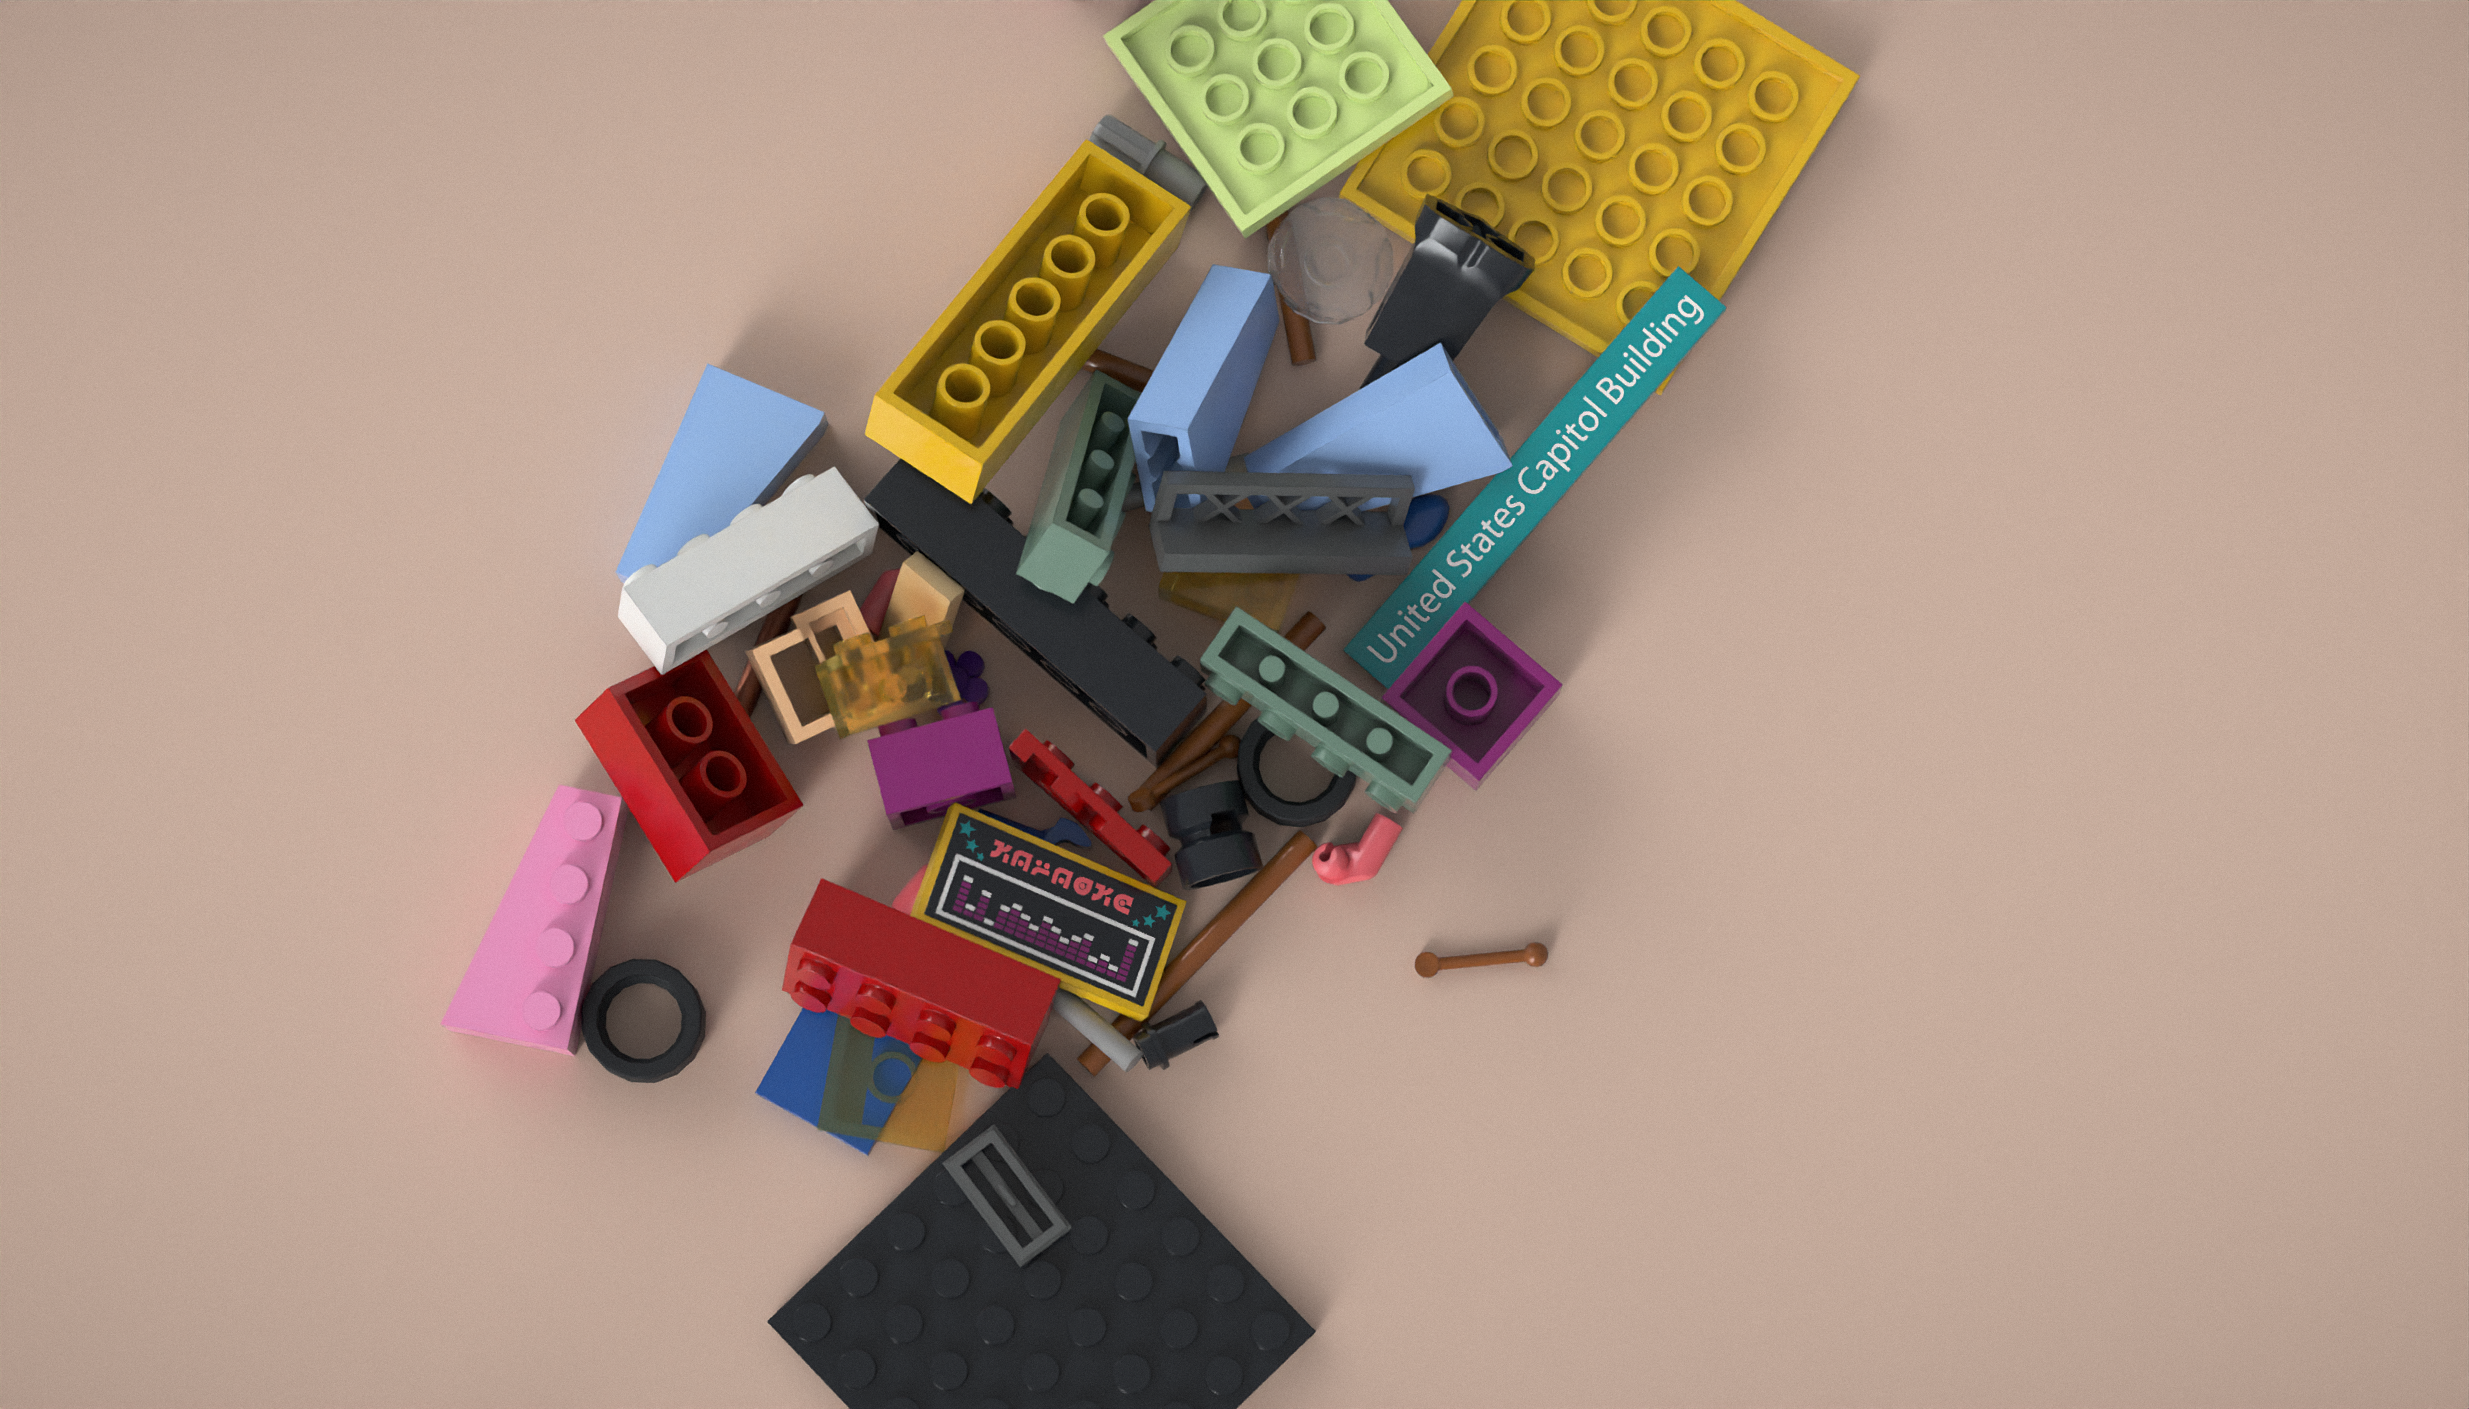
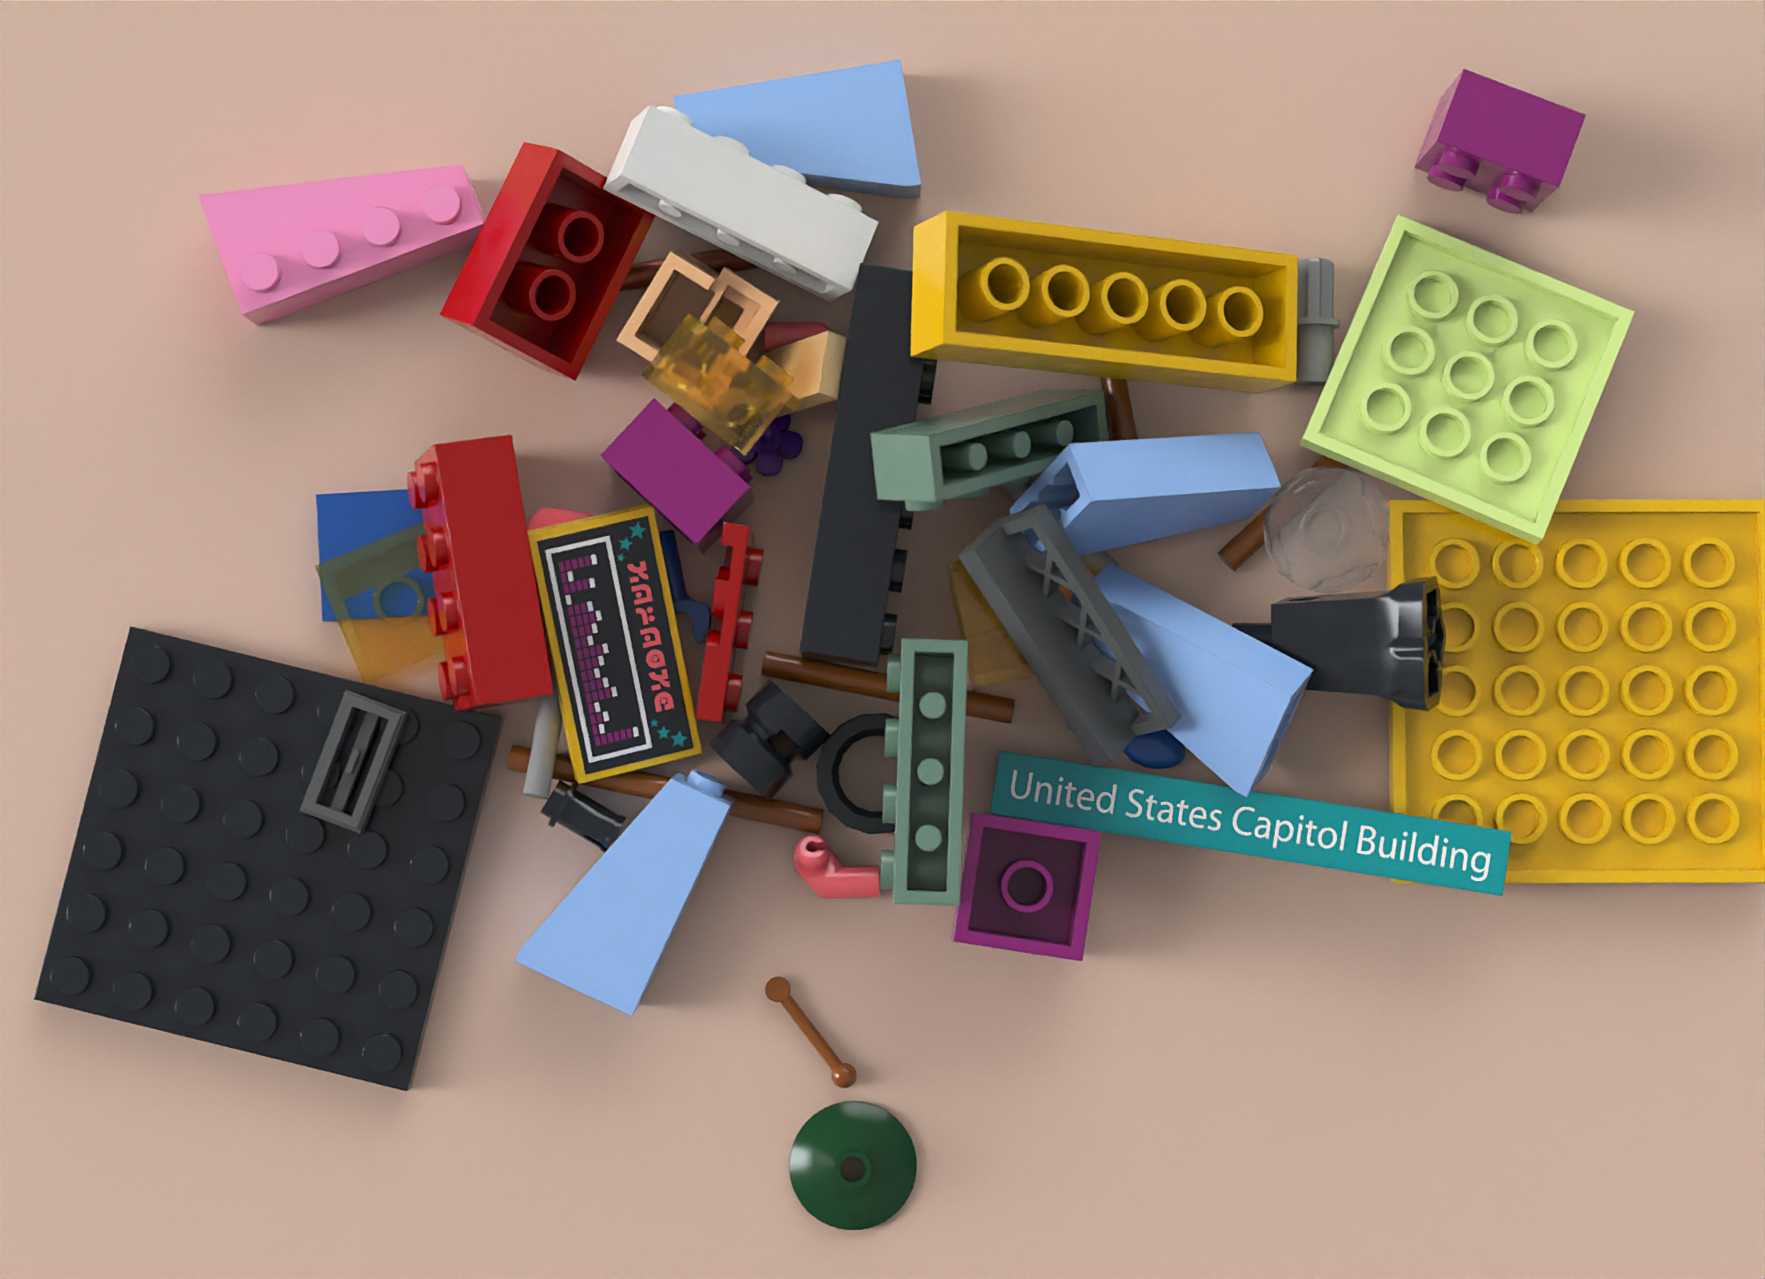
camera: 55 degrees right, 5 degrees up
(609, 986) = (277, 334): black tyre -> none
(1145, 797) = (764, 663): dark orange hinge -> none
(1273, 1035) = (629, 903): none -> light blue slope
(1608, 1028) = (845, 1132): none -> dark green dish

